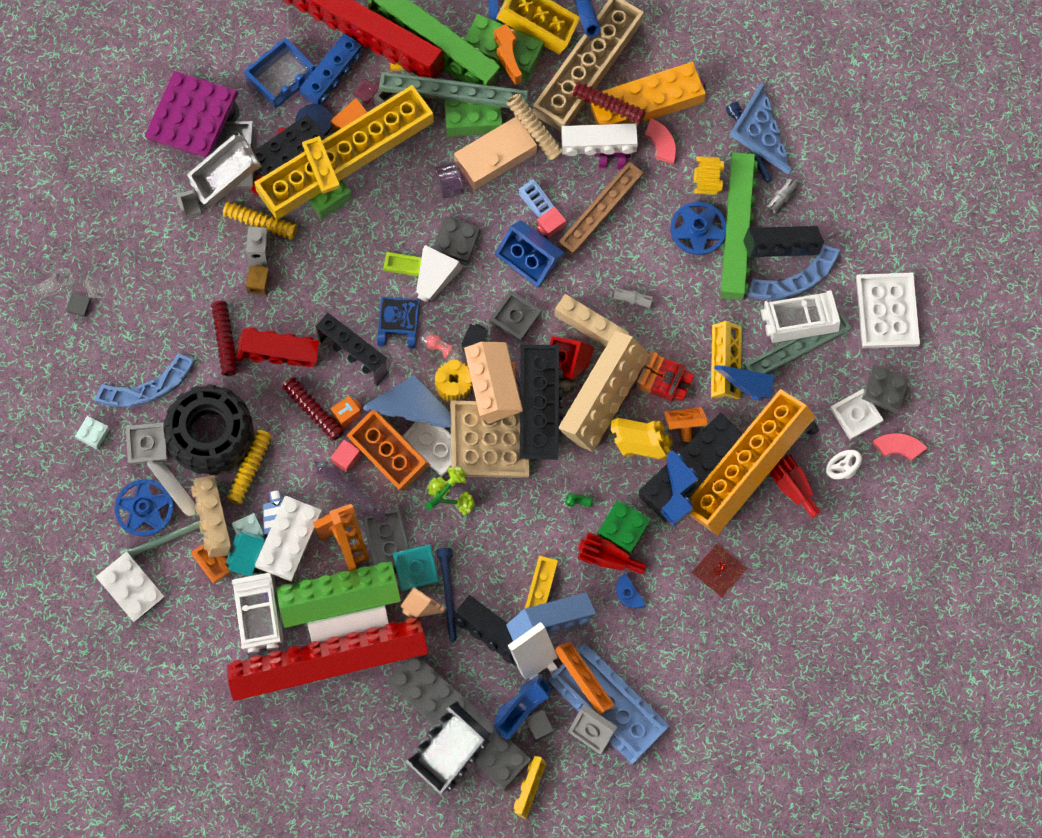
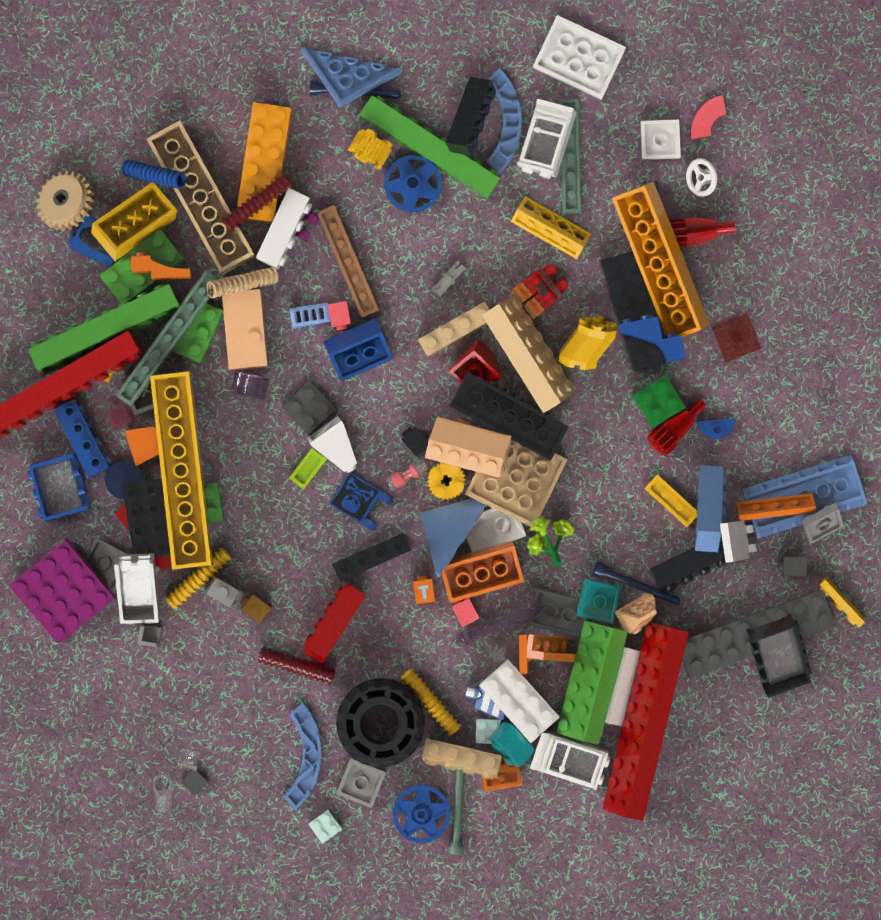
camera: 60 degrees left, 15 degrees up
(130, 586) = (487, 860): white plate -> none
(173, 487) = (414, 778): white sticker -> none
(312, 408) = (405, 619): dark red piece -> none
(320, 165) = (189, 500): yellow plate -> none
(515, 316) = (411, 393): dark grey plate -> none
(517, 709) = (773, 580): blue arch -> none
(572, 499) = (609, 426): green arm -> none
(662, 140) = (310, 169): coral tile -> none
(685, 420) = (589, 294): orange tile -> none
(749, 382) = (586, 216): blue slope -> none
(781, 196) = (421, 91): light grey pin -> none
(885, 389) = (651, 101): dark grey plate -> none

